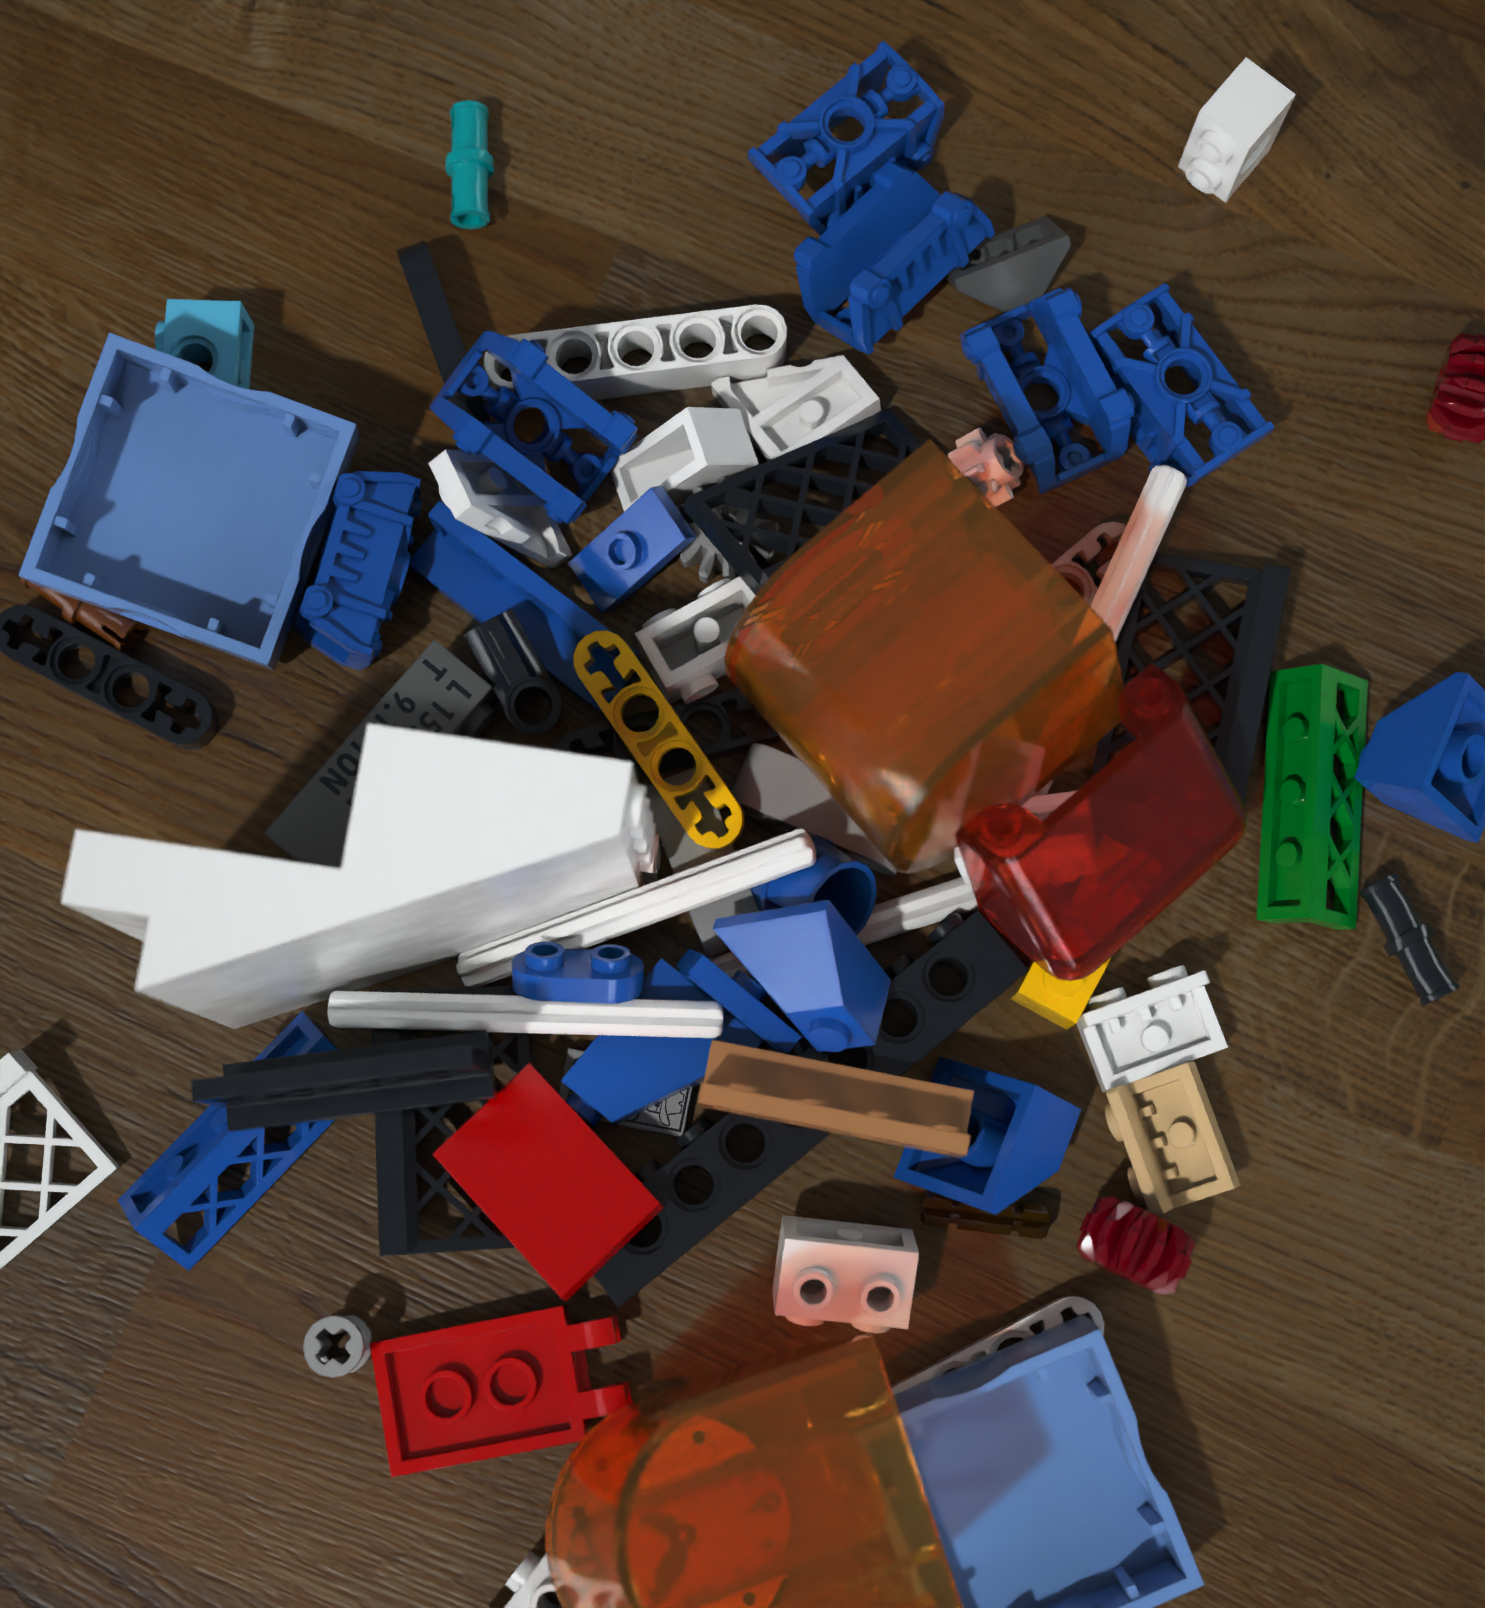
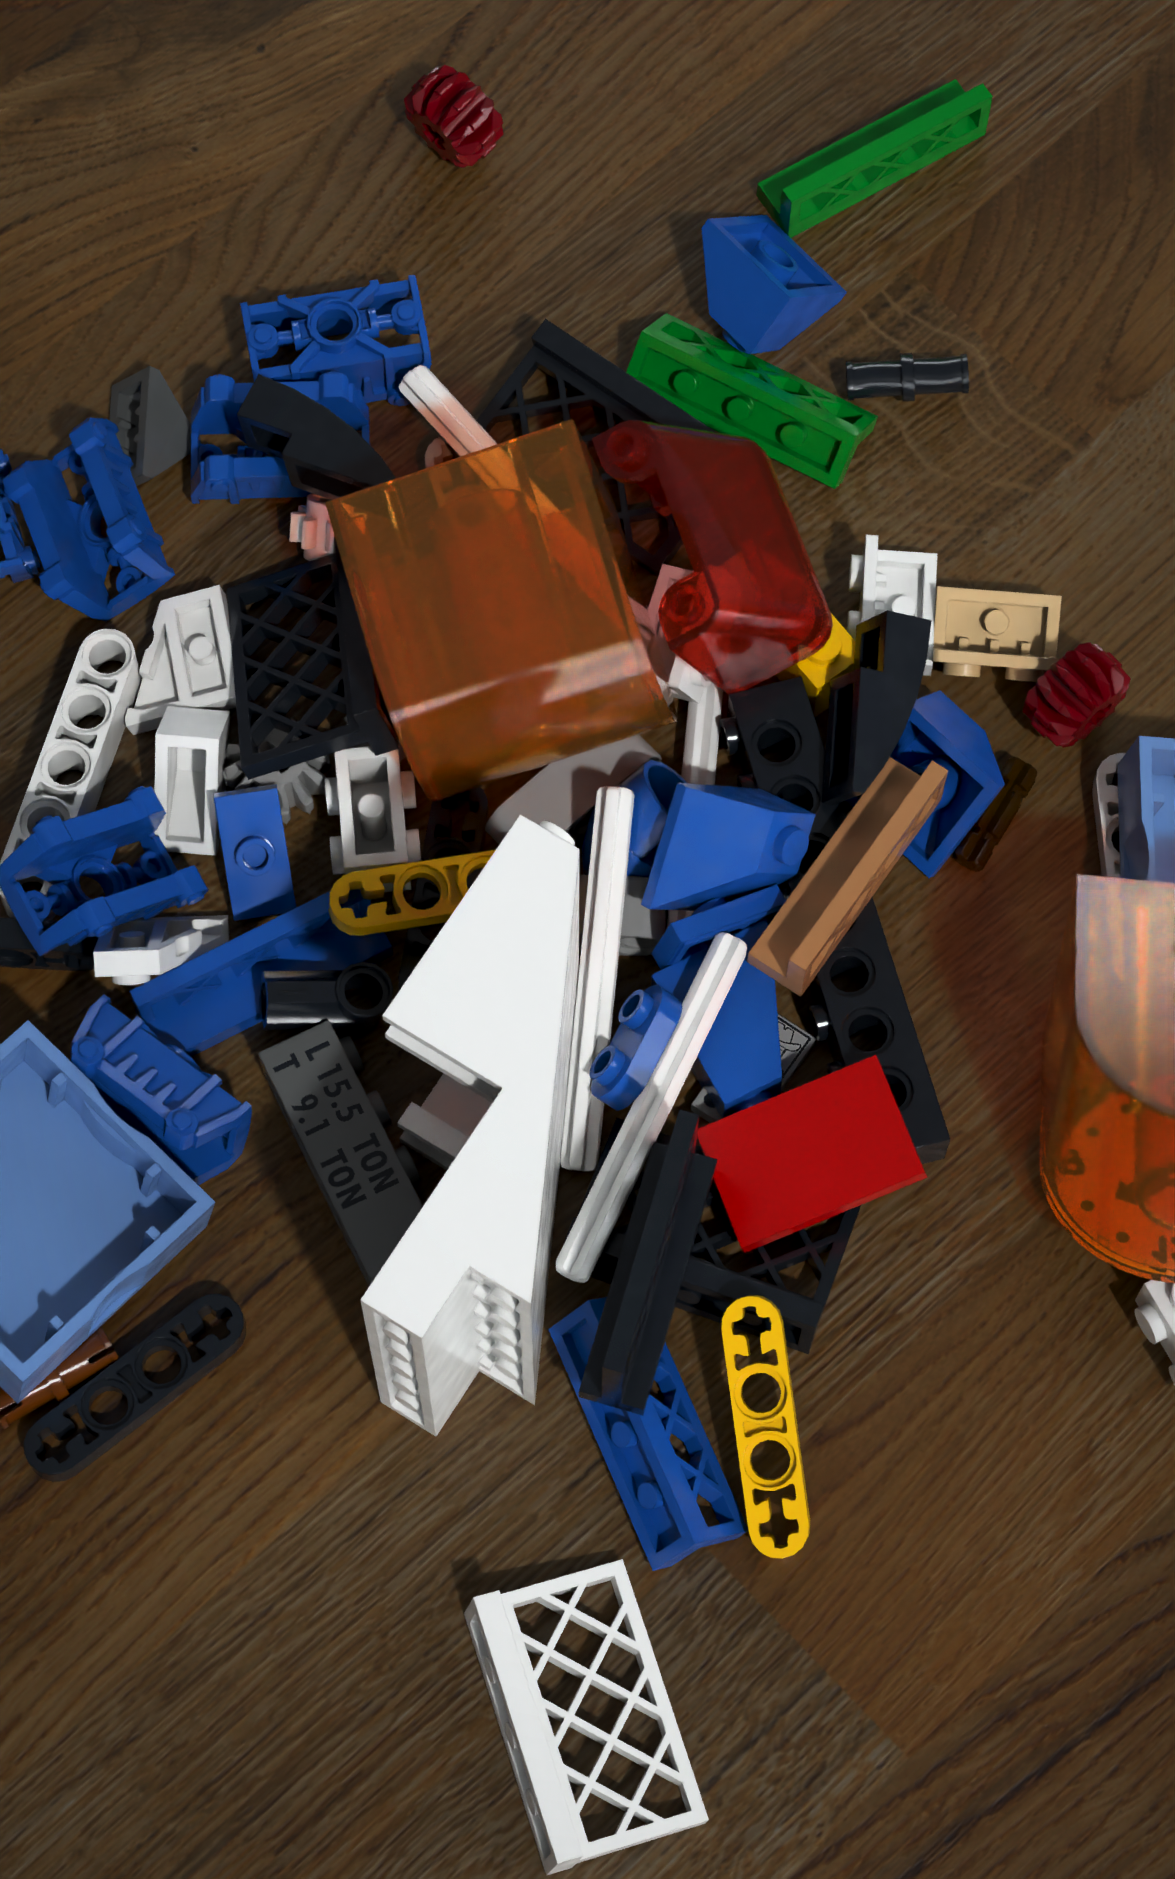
camera: 70 degrees left, 10 degrees down
(273, 1242) = (757, 1426): none -> yellow beam
(318, 1343) = (886, 1393): light grey bush -> none
(491, 1388) = (973, 1296): red tile -> none
(844, 1273) = (1000, 942): brick -> none
(1016, 1055) = (873, 702): none -> black slope
(1033, 415) = (316, 445): none -> black slope
(1235, 130) = (128, 191): white brick -> none

